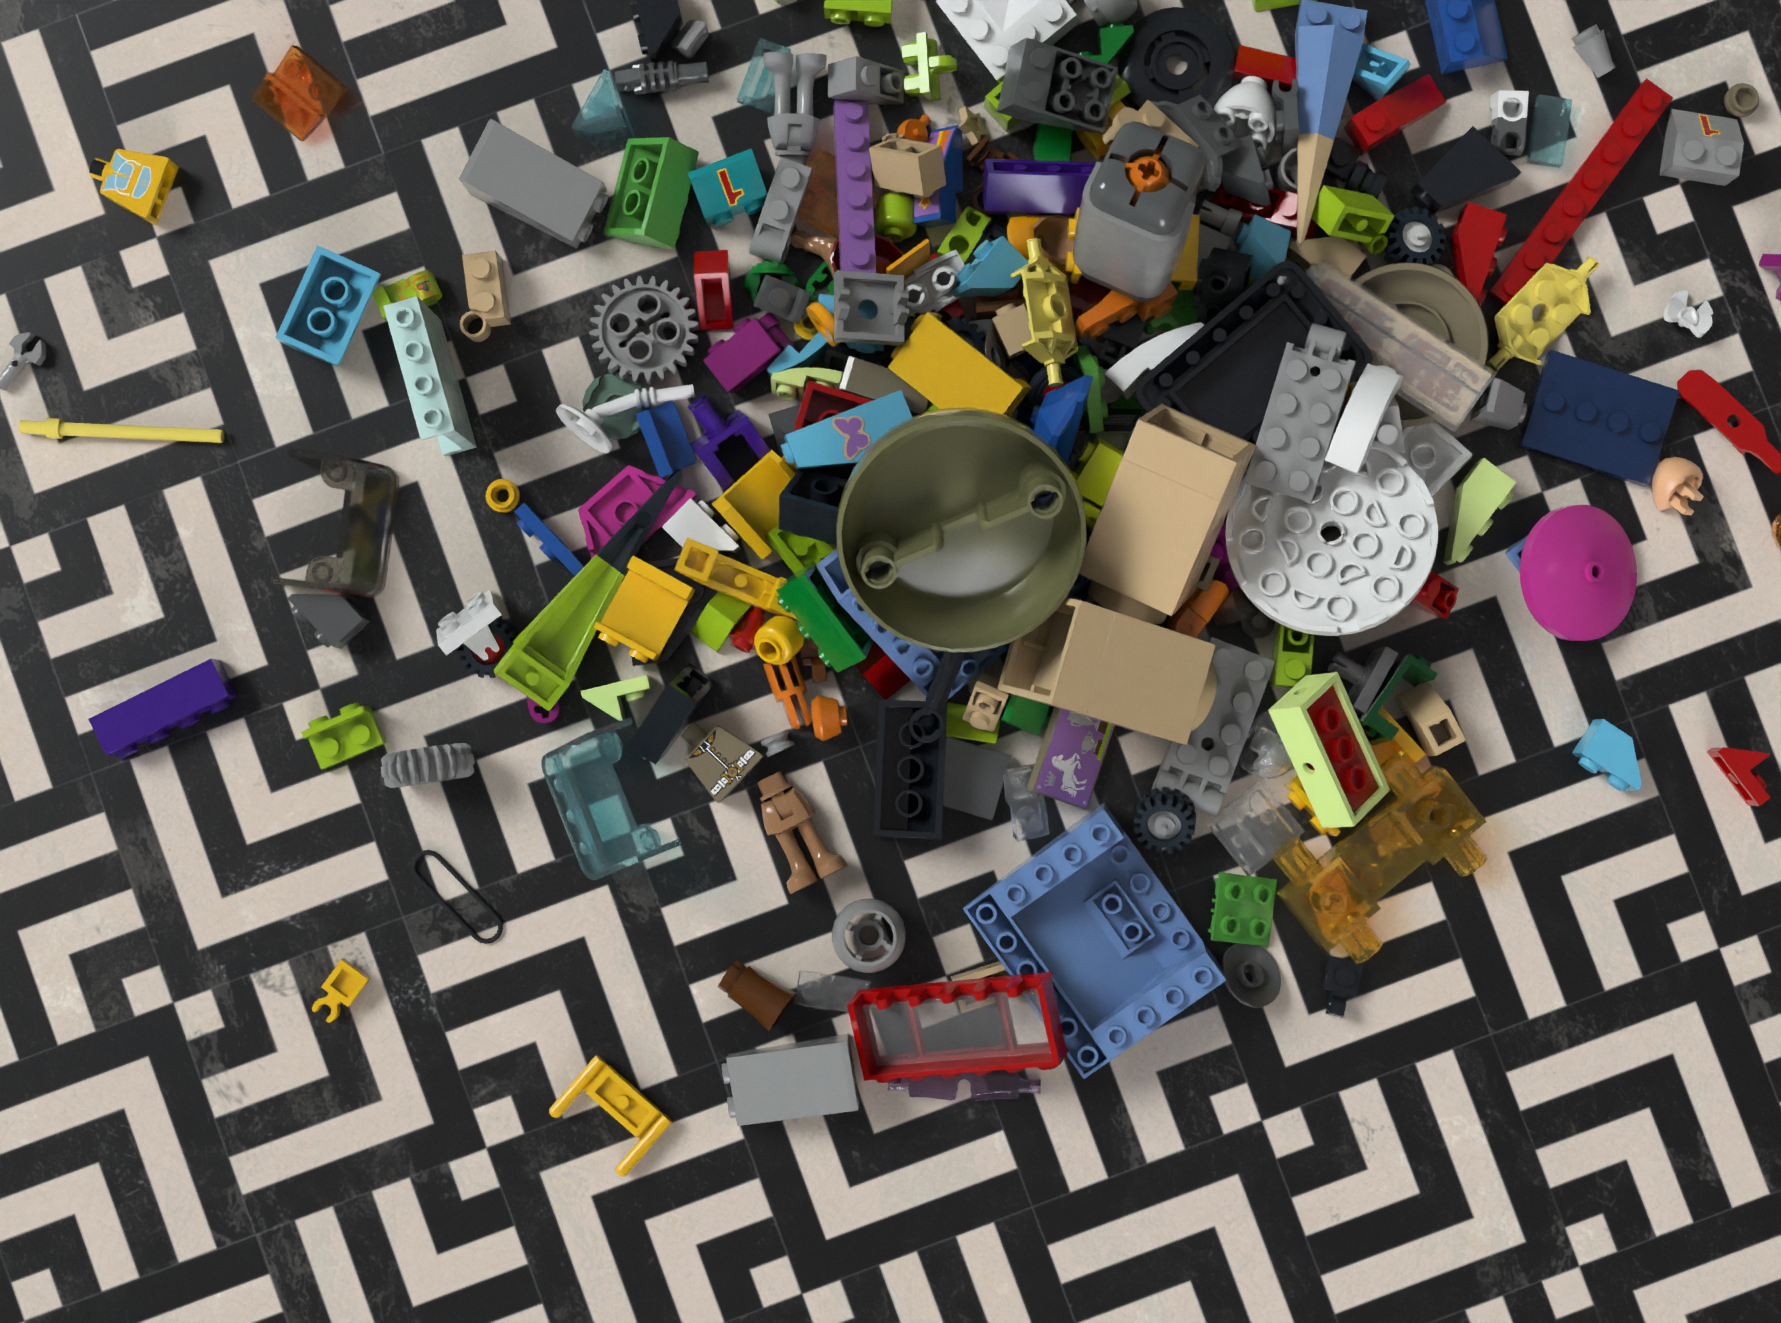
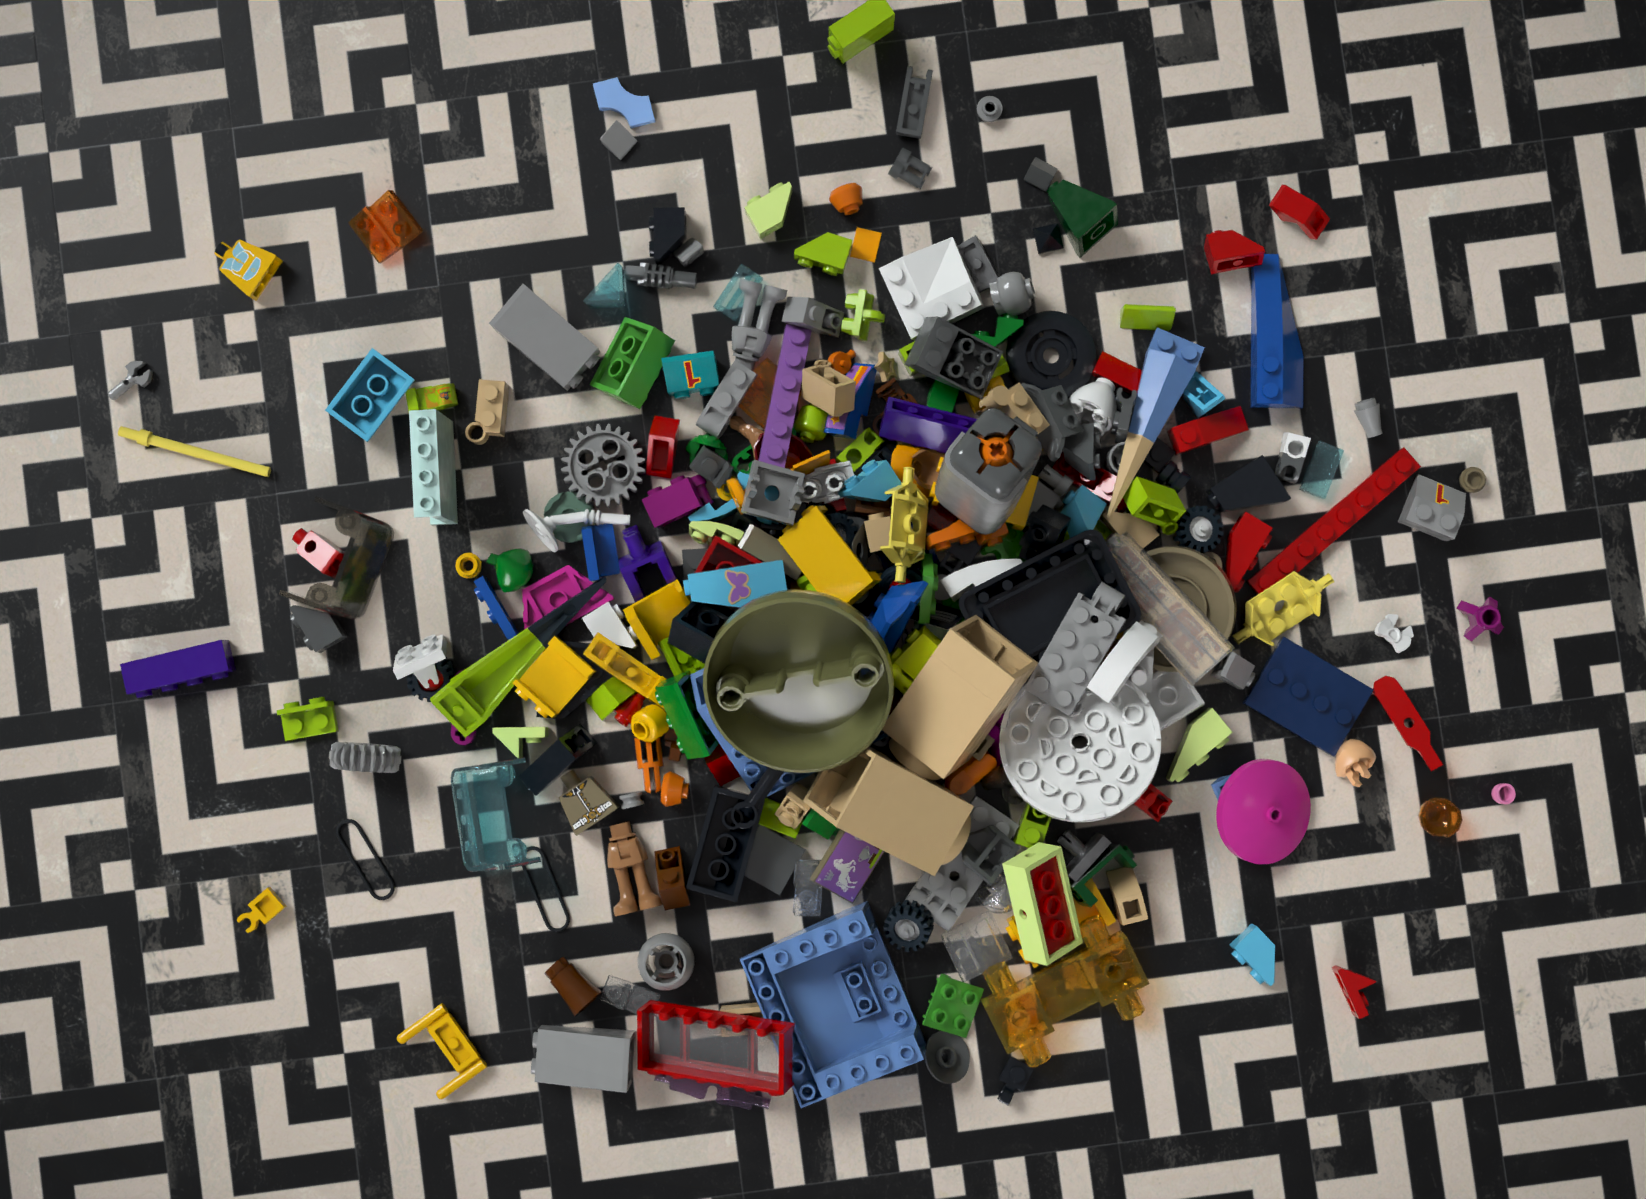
camera: 15 degrees right, 0 degrees up
(308, 519) = (319, 551): none -> torso
(559, 485) = (512, 568): none -> green piece
(708, 878) = (556, 889): none -> black piece
(851, 830) = (671, 878): none -> reddish brown slope
(1244, 702) = (987, 852): none -> dark grey slope

